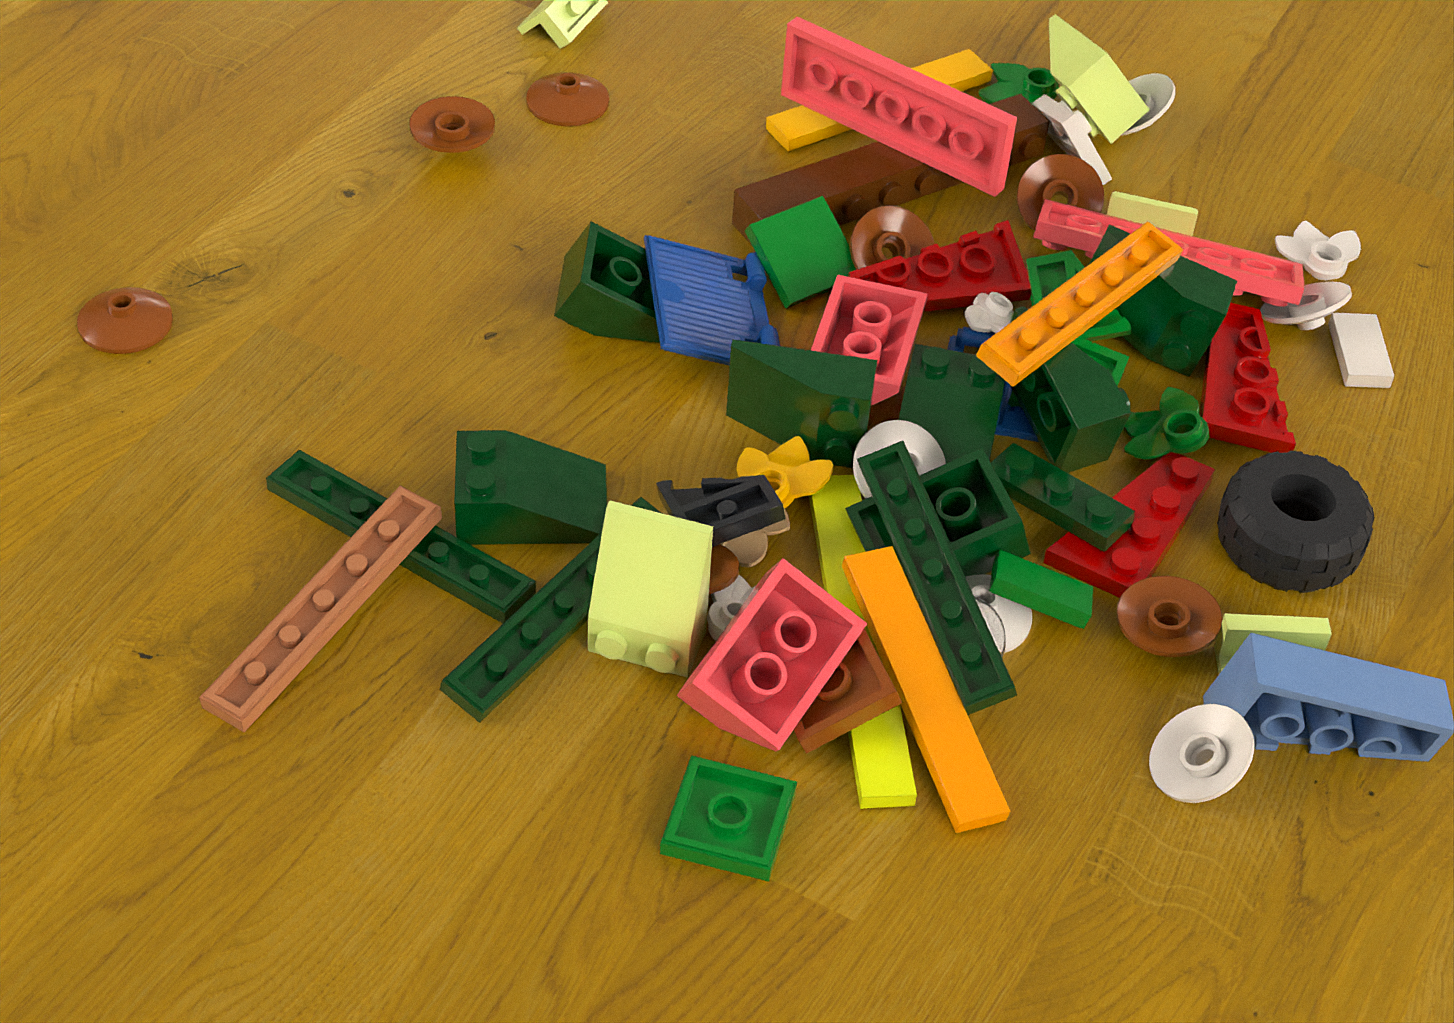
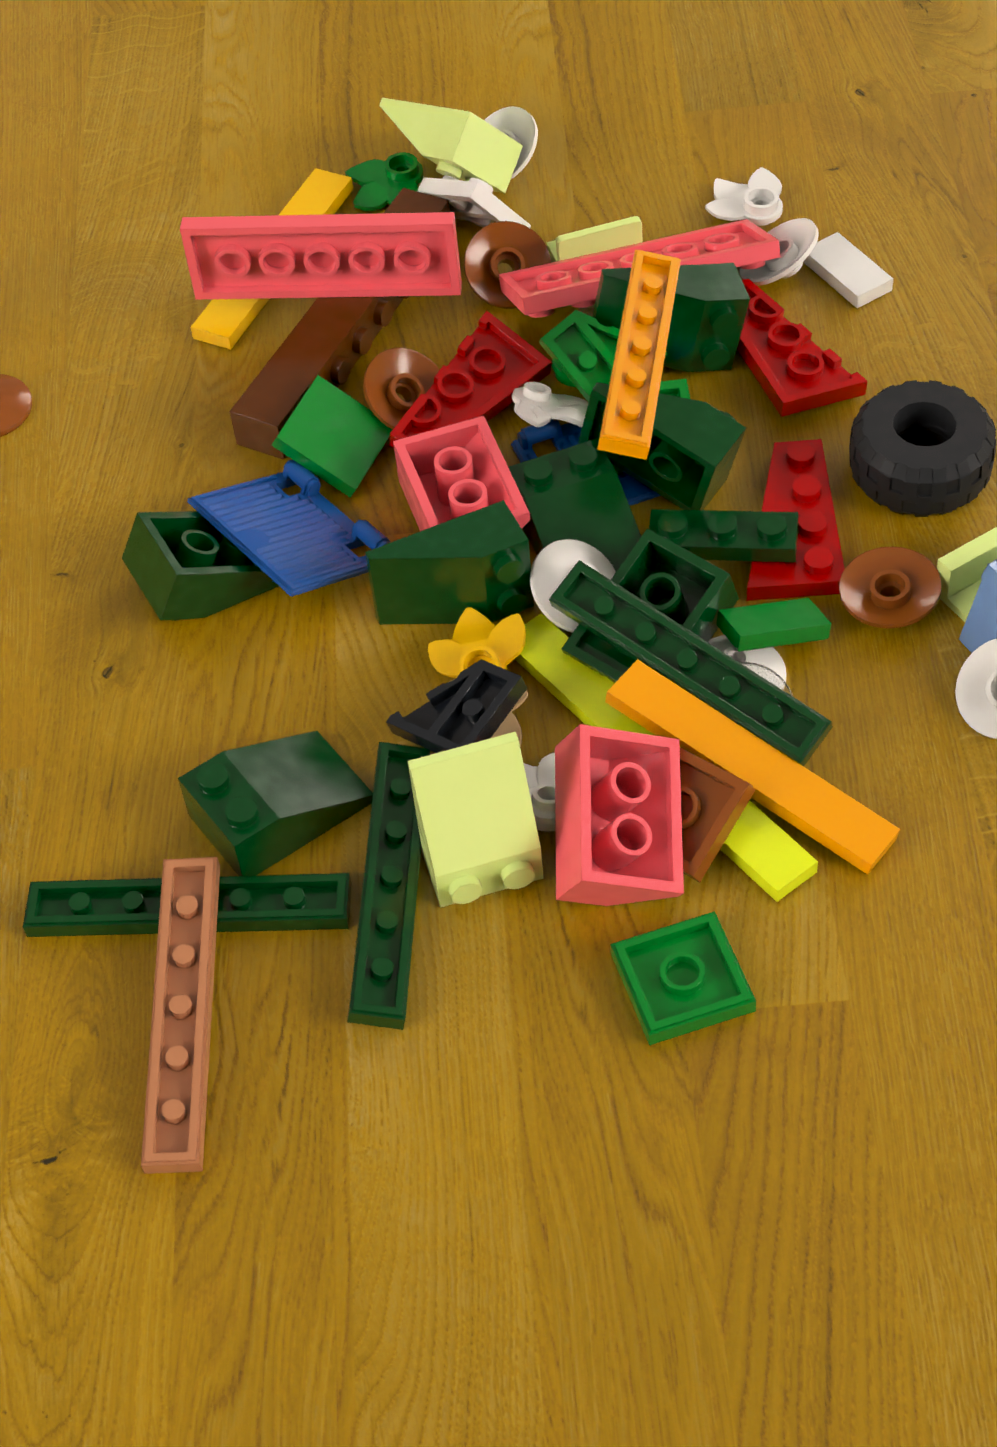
camera: 25 degrees left, 5 degrees up
(1171, 429) = (758, 412): green plate -> none

